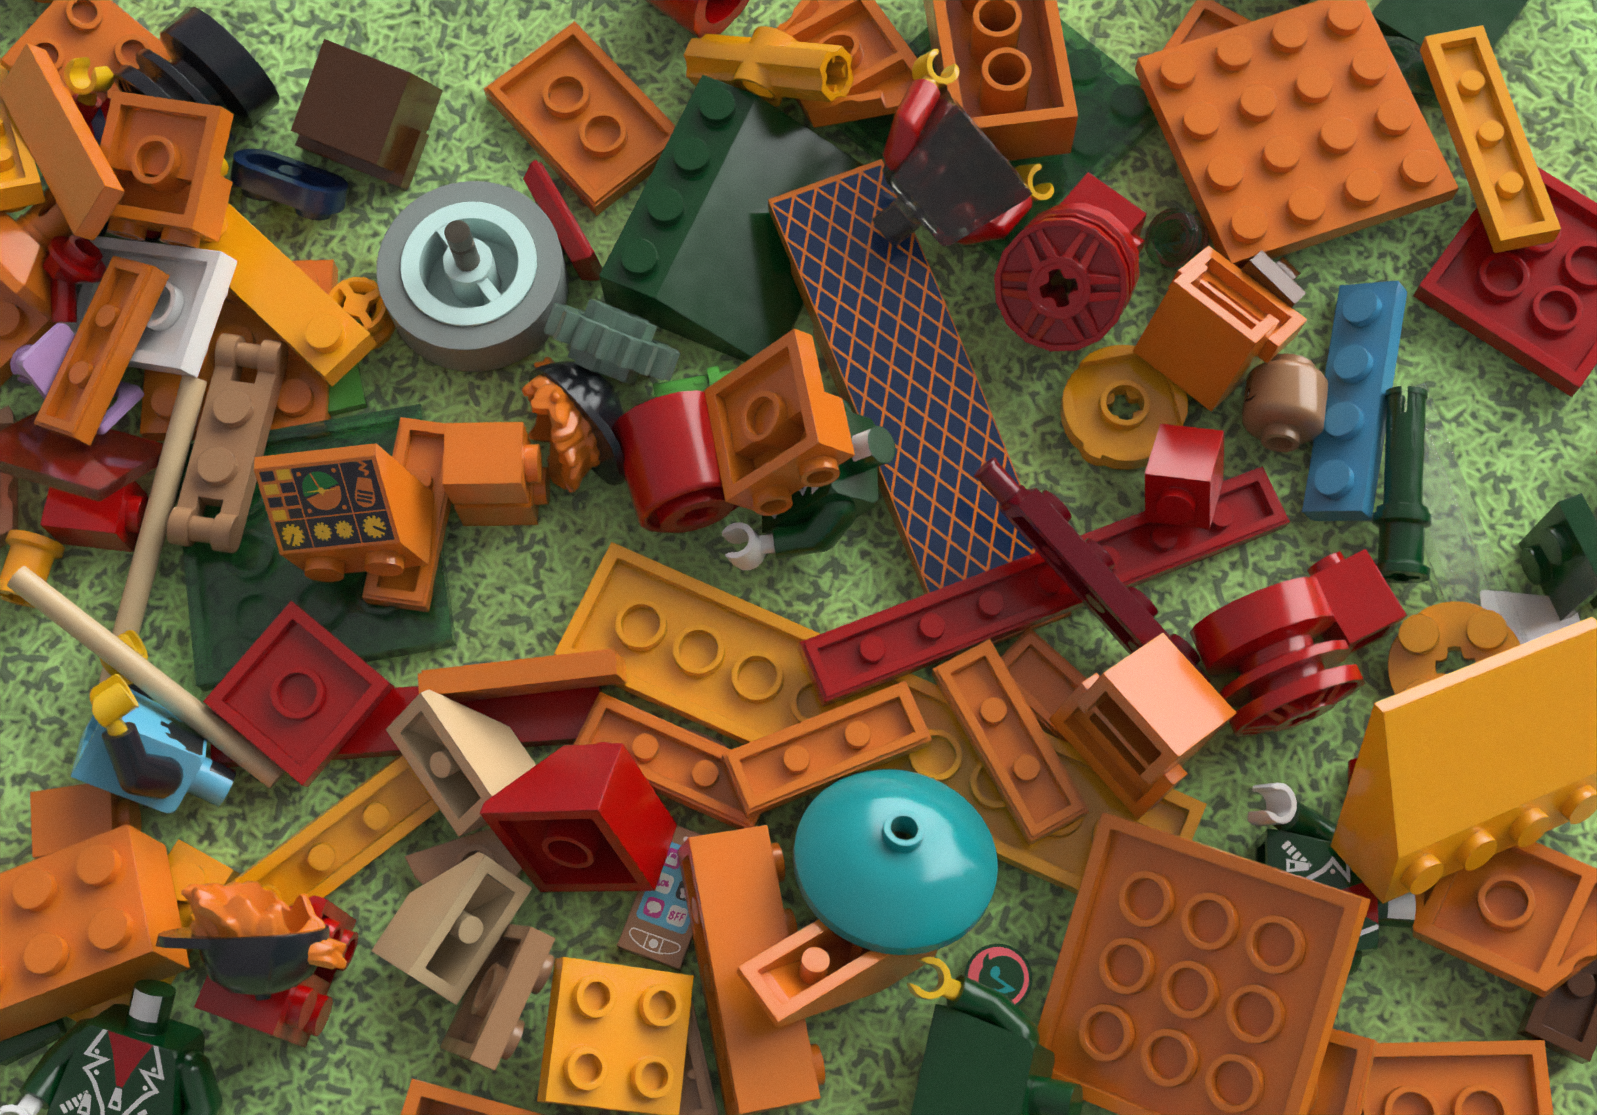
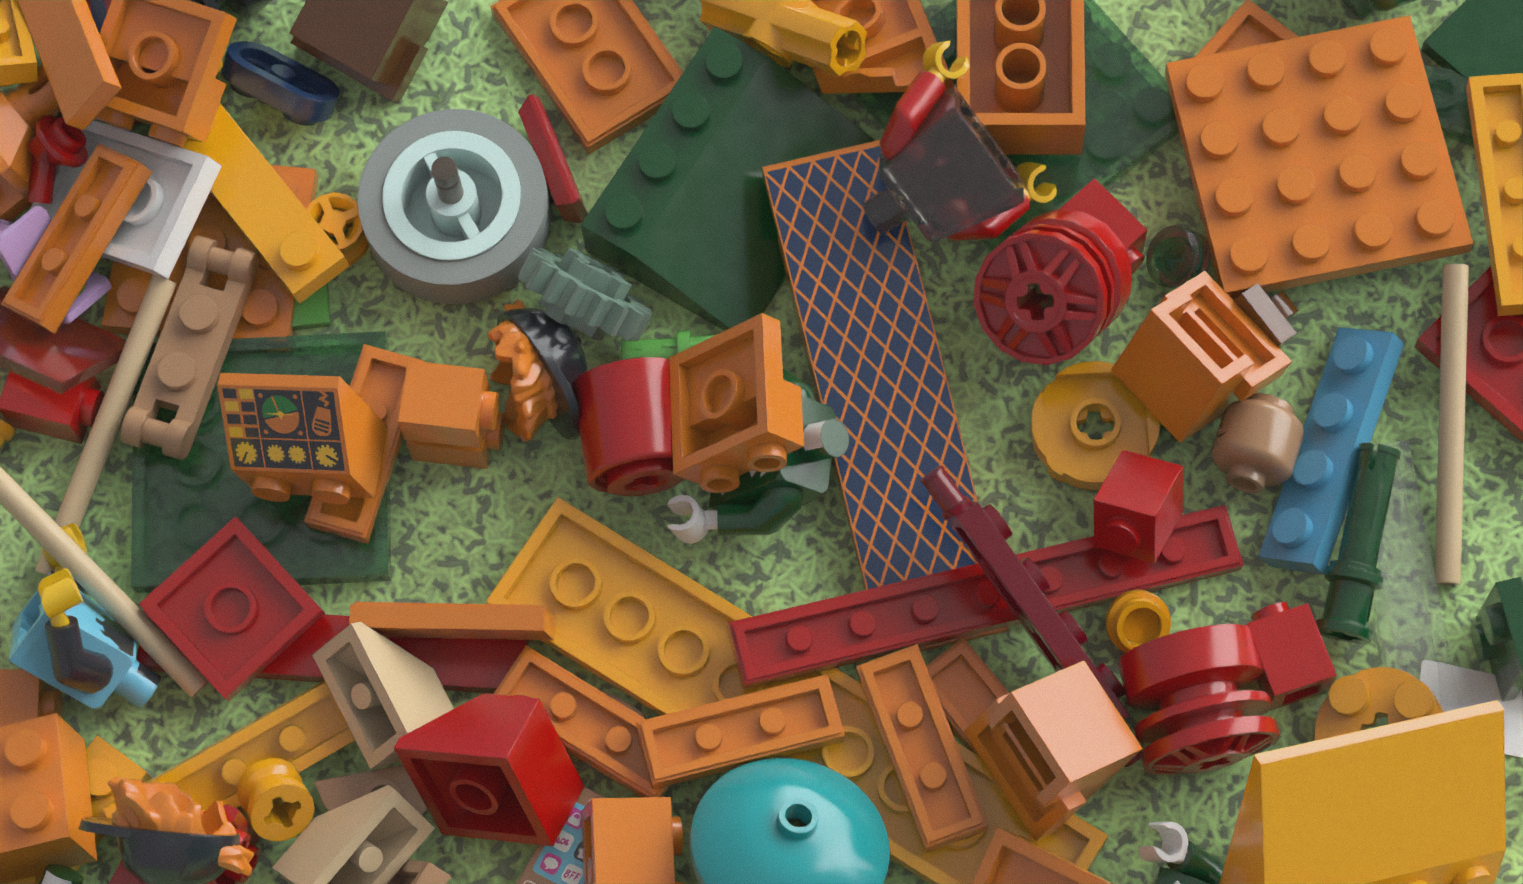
camera: 10 degrees right, 0 degrees up
(365, 863) = (260, 796): none -> light orange wheel
(1197, 589) = (1136, 619): none -> light orange plate
(1467, 361) = (1451, 424): none -> tan piece

